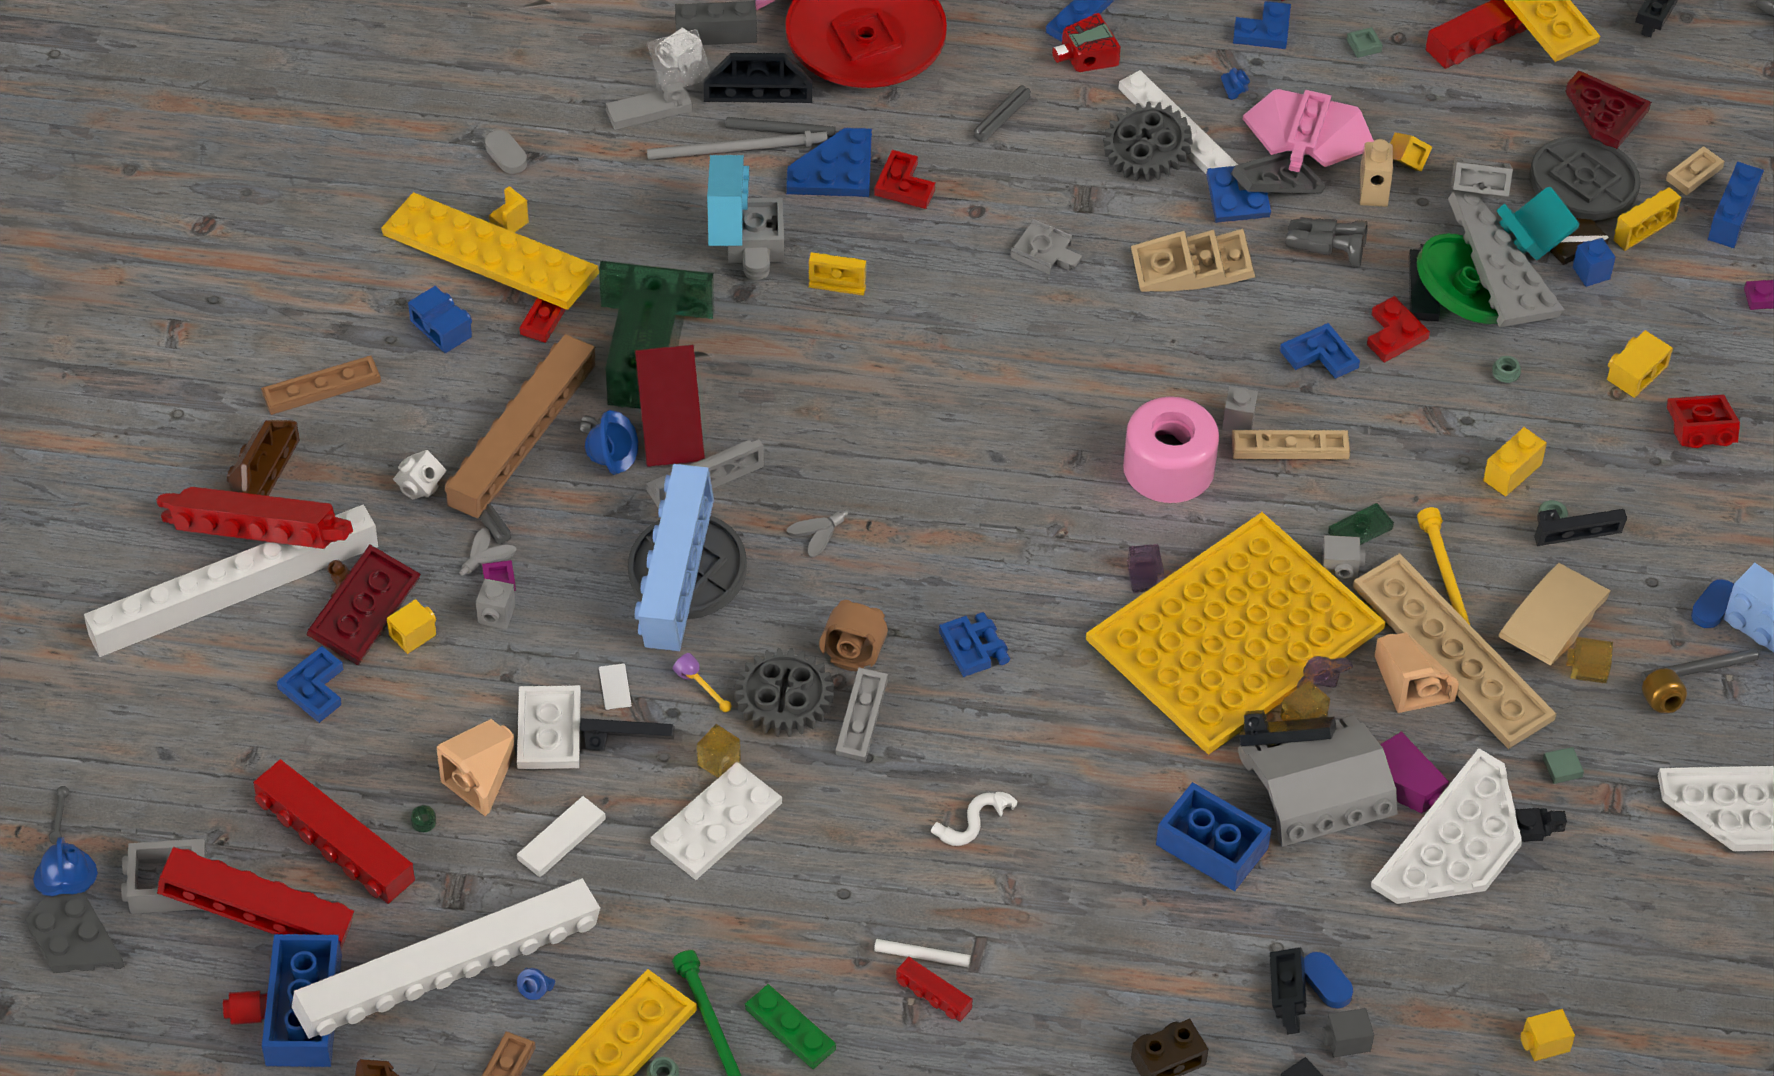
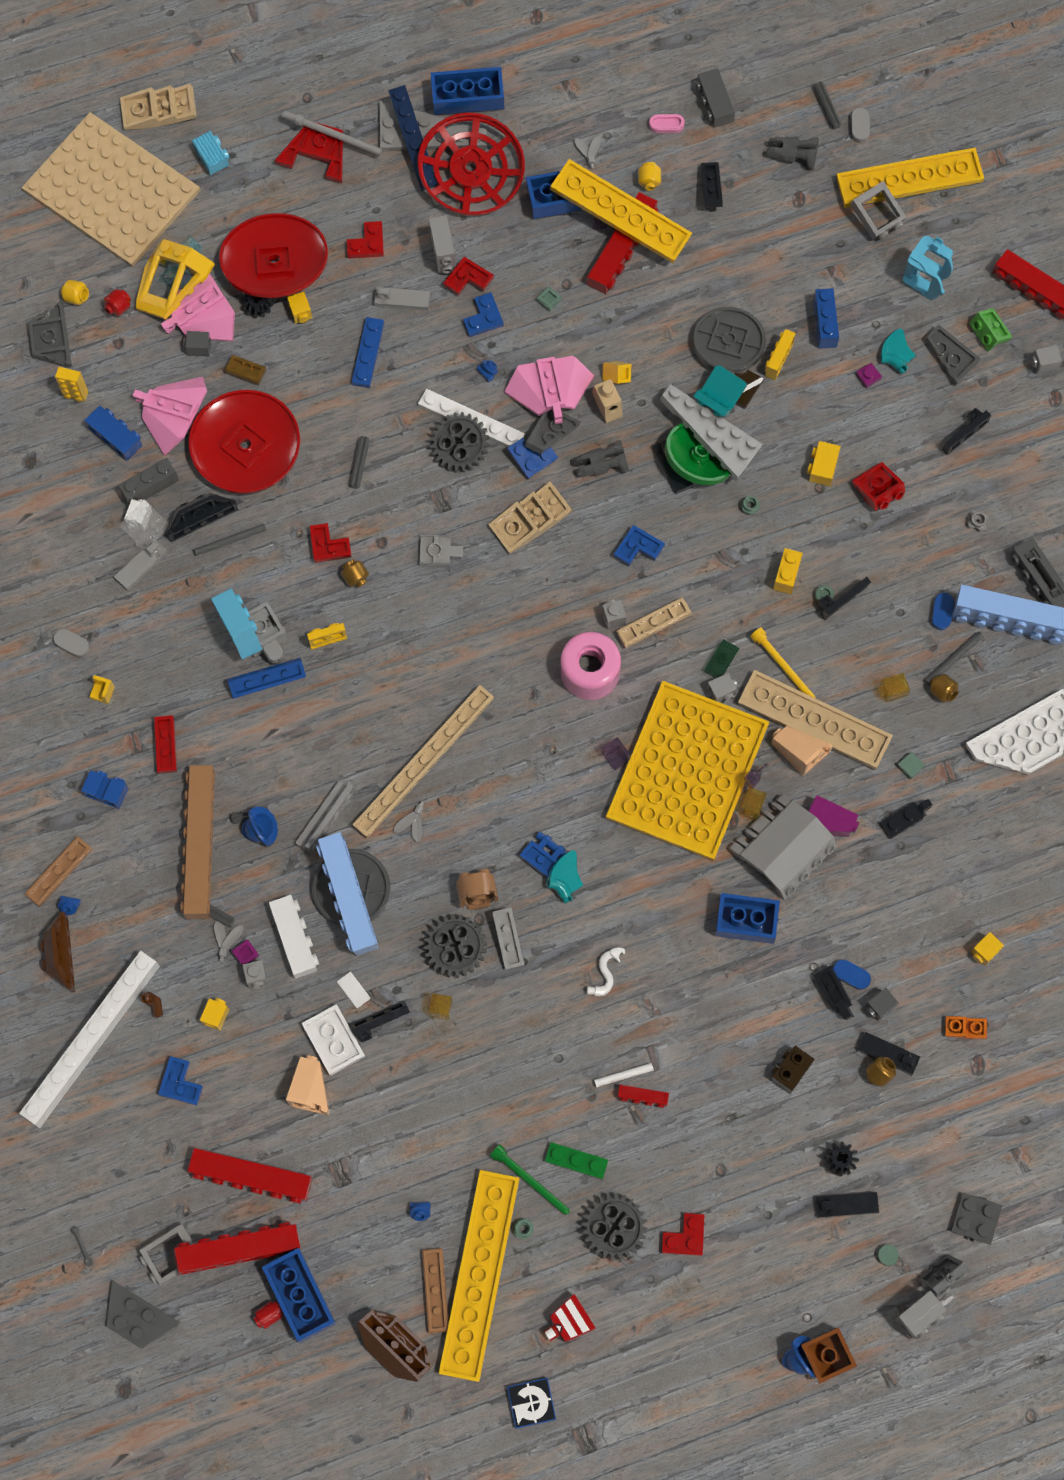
camera: 25 degrees left, 20 degrees up
(64, 870) = (110, 1283): blue helmet -> none
(254, 517) = (82, 995): red hinge -> none
(309, 424) = (68, 905): none -> blue plate
(362, 604) = (177, 1013): dark red tile -> none
(417, 820) = (291, 1140): clear green hinge -> none
(419, 475) = (158, 909): white brick -> none
(445, 958) = (366, 1230): white brick -> none
(490, 250) = (106, 724): yellow plate -> none
(561, 836) = (380, 1107): white tile -> none
(574, 585) = (293, 937): none -> white brick
(648, 317) = (237, 737): clear green brick -> none
(669, 405) = (284, 788): dark red tile -> none
(687, 668) = (392, 958): hinge -> none
(716, 820) = (462, 1050): white plate -> none
(738, 145) = (252, 540): light grey bar -> none
(746, 290) = (266, 677): none -> blue plate
(835, 166) = (279, 553): blue plate -> none
(876, 466) = (423, 761): none -> tan plate
(918, 224) = (354, 573): none -> pearl gold head
(986, 678) = (564, 876): none -> teal arm
(1088, 45) = (386, 385): red torso -> none
(1261, 732) = (749, 829): black hinge -> none
(1400, 330) = (676, 505): red plate -> none
(1459, 840) = (882, 848): white plate -> none
(1470, 172) = (680, 372): light grey window -> none
(1554, 614) = (860, 666): tan slope -> none
(1593, 262) = (764, 402): blue brick -> none
(1606, 109) = (717, 282): dark red plate -> none
(1695, 170) = (790, 302): tan plate -> none

